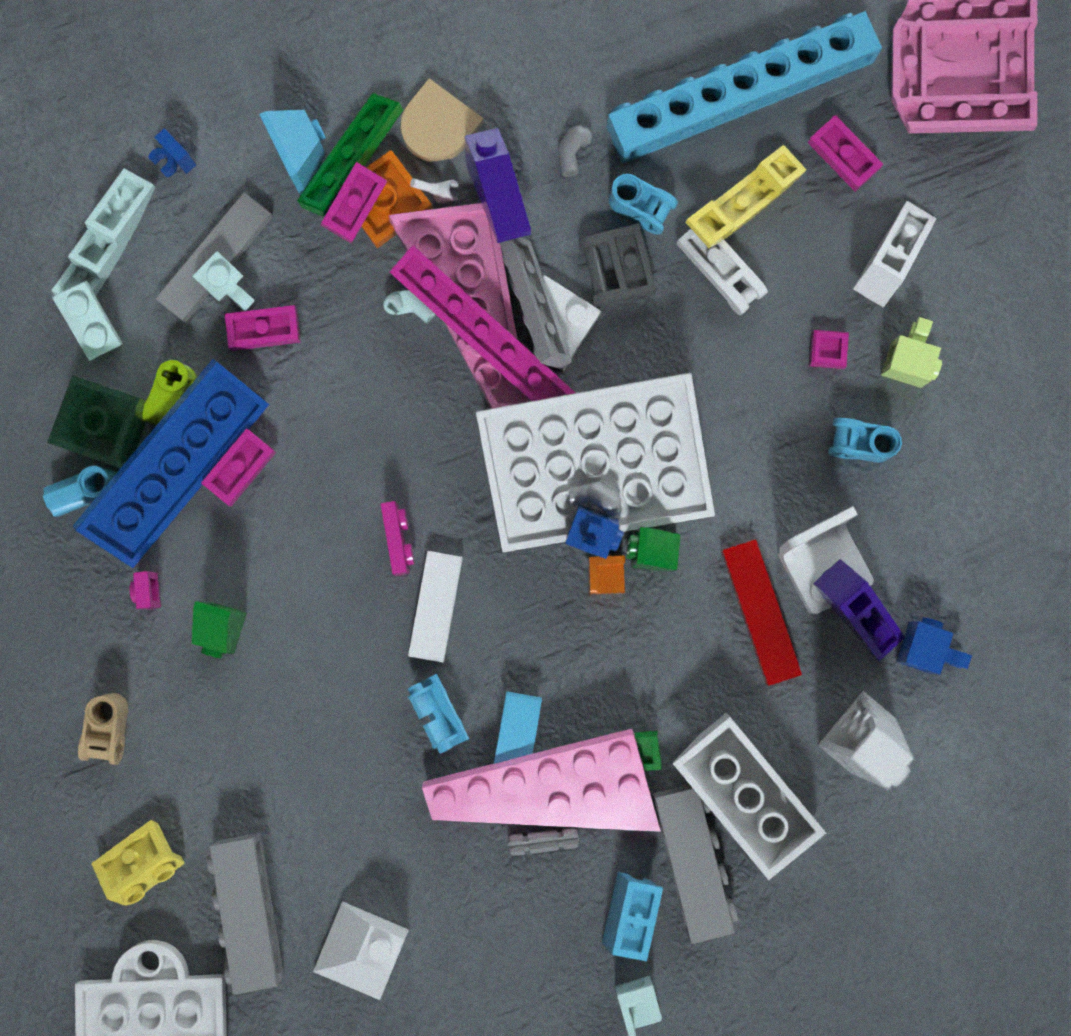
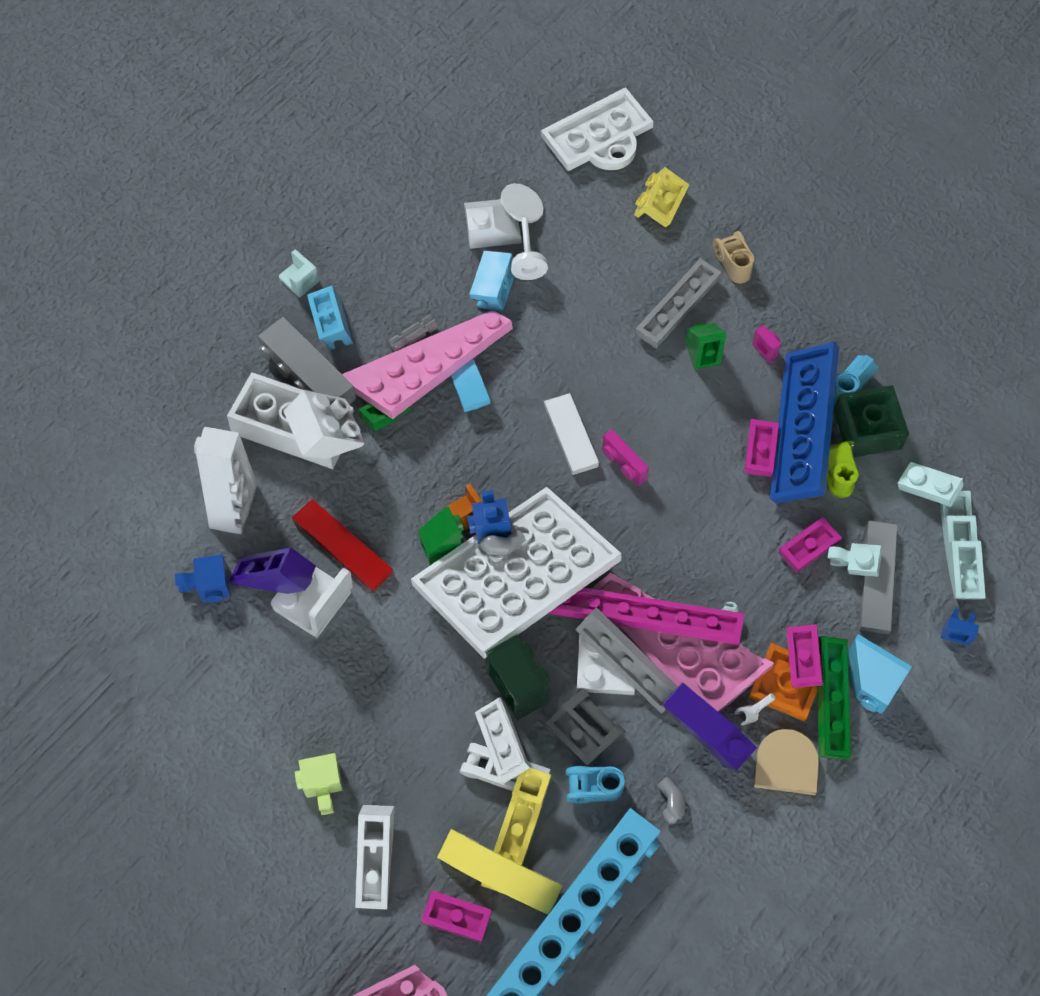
camera: 150 degrees right, 20 degrees down
(210, 704) = (678, 303): none -> light grey plate
(245, 913) = (577, 204): light grey brick -> none
(311, 947) = (527, 208): none -> white piece
(409, 860) = (493, 280): none -> medium azure hinge
(432, 700) = (518, 363): medium azure hinge -> none
(660, 339) = (517, 676): none -> clear green brick
(712, 289) = (502, 740): none -> white tile
(725, 748) = (323, 425): none -> white slope
(786, 169) = (500, 872): none -> light yellow slope
(829, 349) = (389, 756): dark pink tile -> none
(856, 440) = (330, 697): medium azure piece -> none

